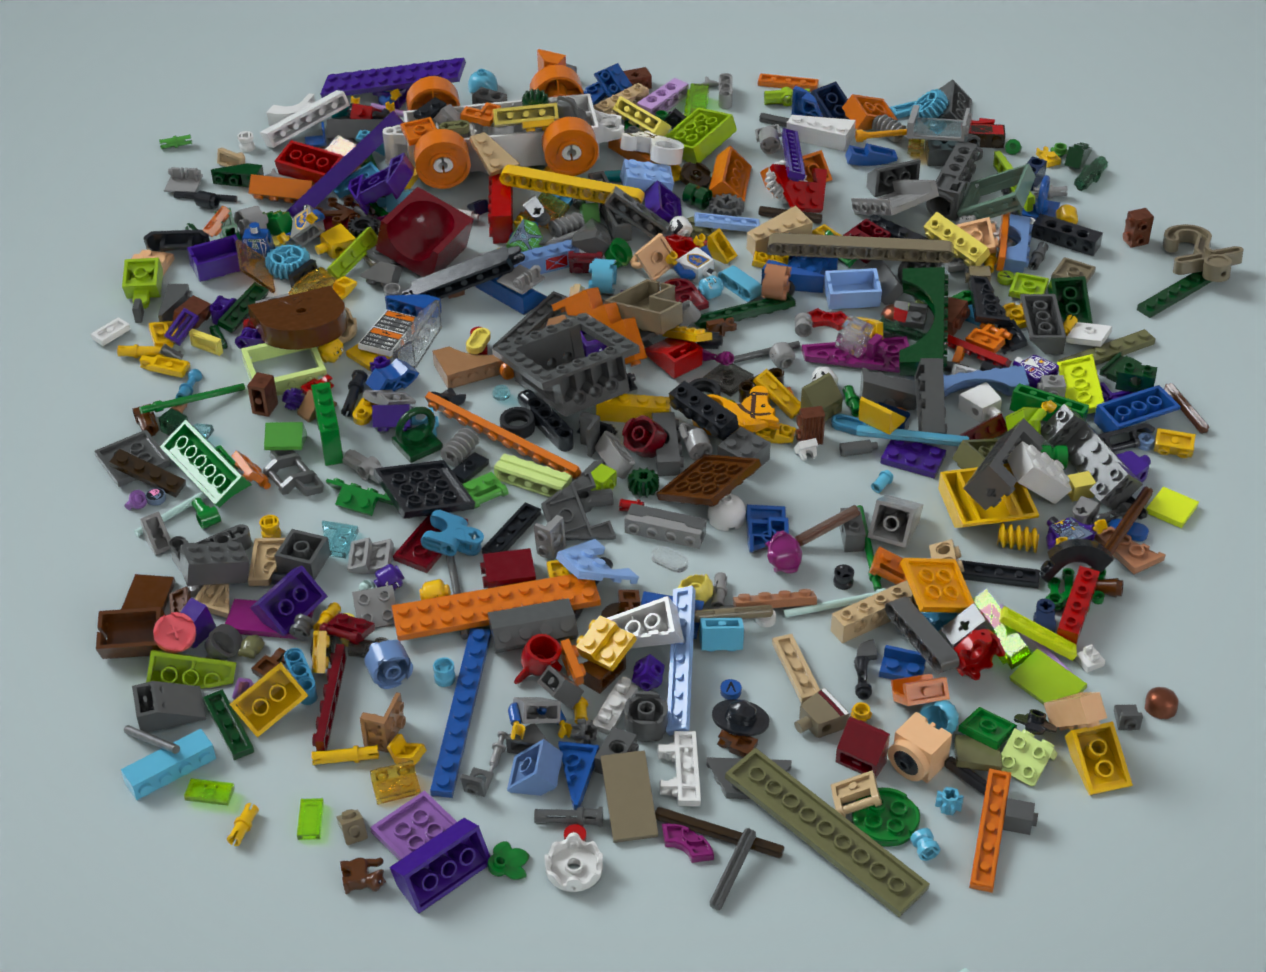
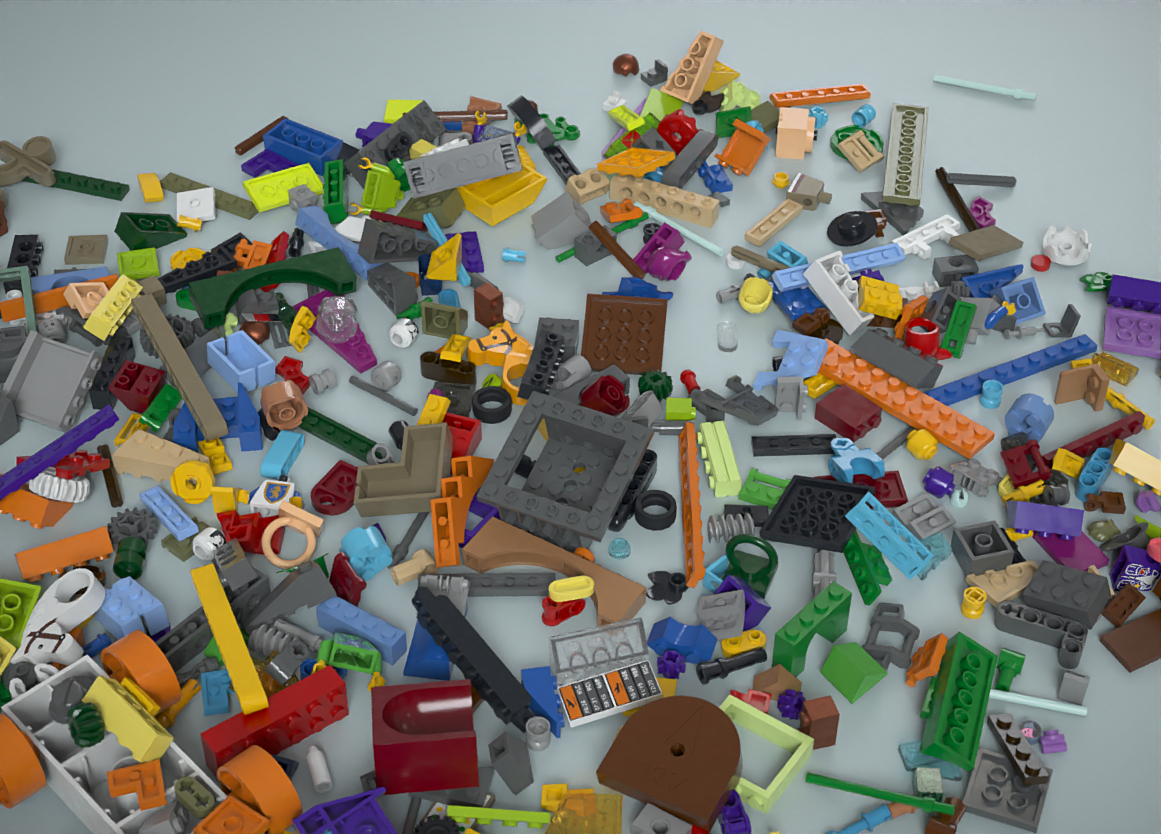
camera: 125 degrees left, 0 degrees up
(357, 499) = (887, 537): none -> medium azure fence
(491, 154) = (220, 737): tan wing -> none
(529, 687) = (959, 327): none -> green plate
(549, 816) = (1018, 257): dark grey pin -> none
(646, 716) = (909, 265): dark grey brick -> none
(662, 201) = (174, 581): dark purple slope -> none
(665, 525) = (697, 349): light grey piece -> none
(710, 287) = (311, 468): medium azure head -> none
(721, 326) = (375, 433): reddish brown plate -> none
(730, 689) = (827, 247): blue tile -> none
(739, 234) = (201, 473): none -> yellow plate
(782, 599) = (716, 258): nougat plate -> none
(816, 568) = (664, 237): none -> magenta slope
(862, 689) = (737, 194): black piece -> none
(863, 747) = (820, 159): dark red slope -> none
(1020, 816) = (795, 83): dark grey brick -> none
(1035, 367) = (281, 217): dark purple torso -> none
(1044, 322) = (203, 226): dark grey slope -> none
(1045, 614) = (599, 129): dark blue piece -> none
(1078, 604) = (568, 115): red brick -> none
(1085, 458) = (396, 149): none -> black plate
(1112, 367) = (230, 181): dark green plate -> none
(1135, 377) = (259, 152): dark green brick -> none
(1138, 319) = (150, 187): none -> yellow slope
(1174, 443) = (327, 124): yellow bracket -> none

